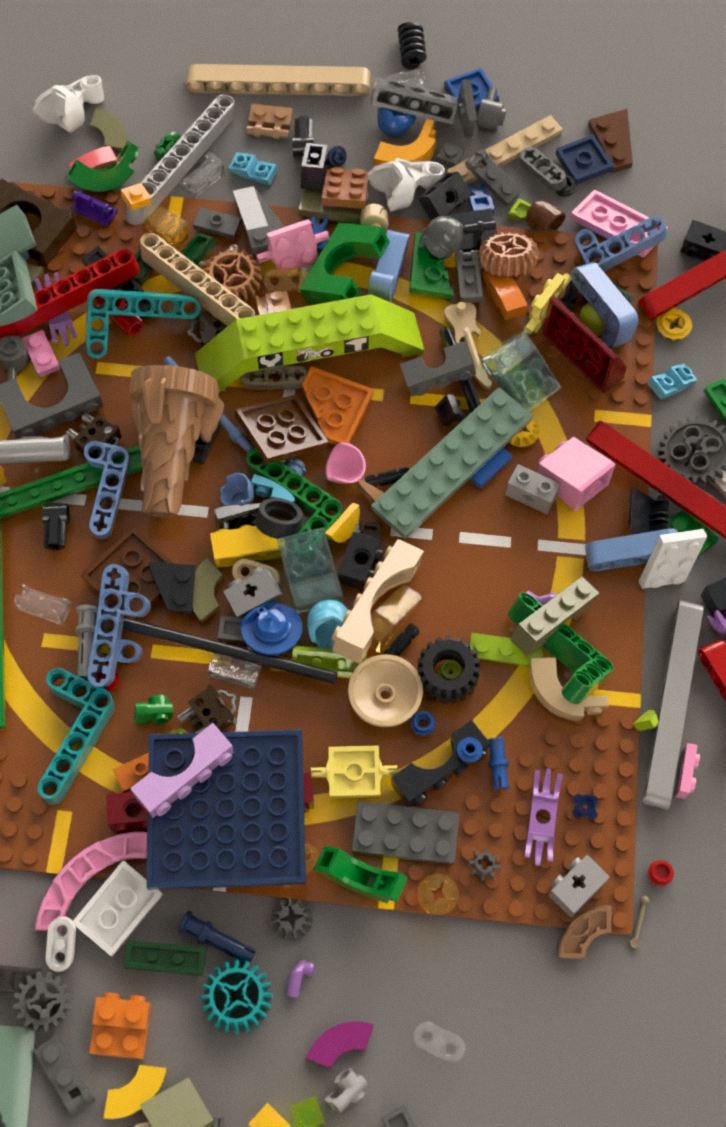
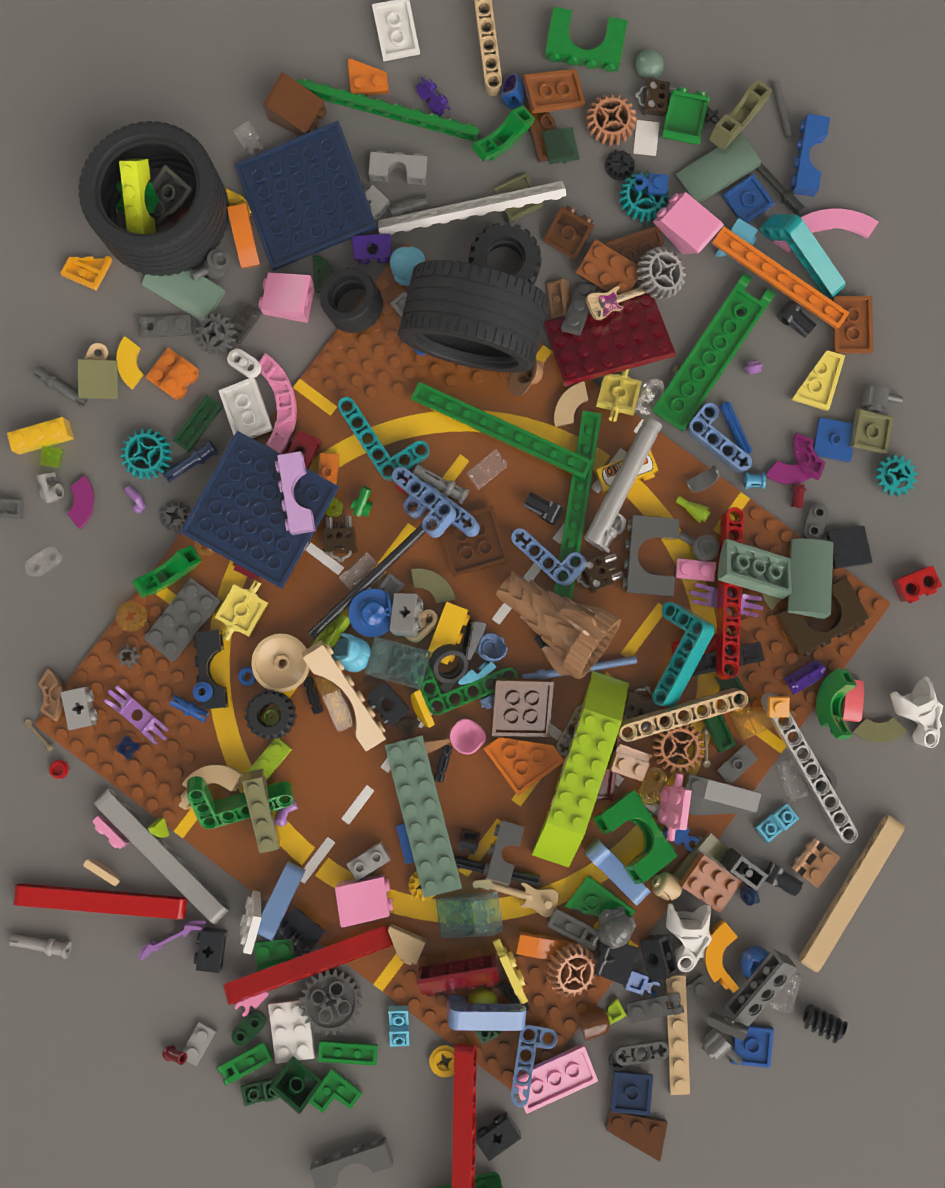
camera: 120 degrees right, 20 degrees up
(166, 144) = (828, 768): green gear -> none
(175, 585) = (444, 564): black wing -> none
(589, 408) = (407, 944): none -> tan slope

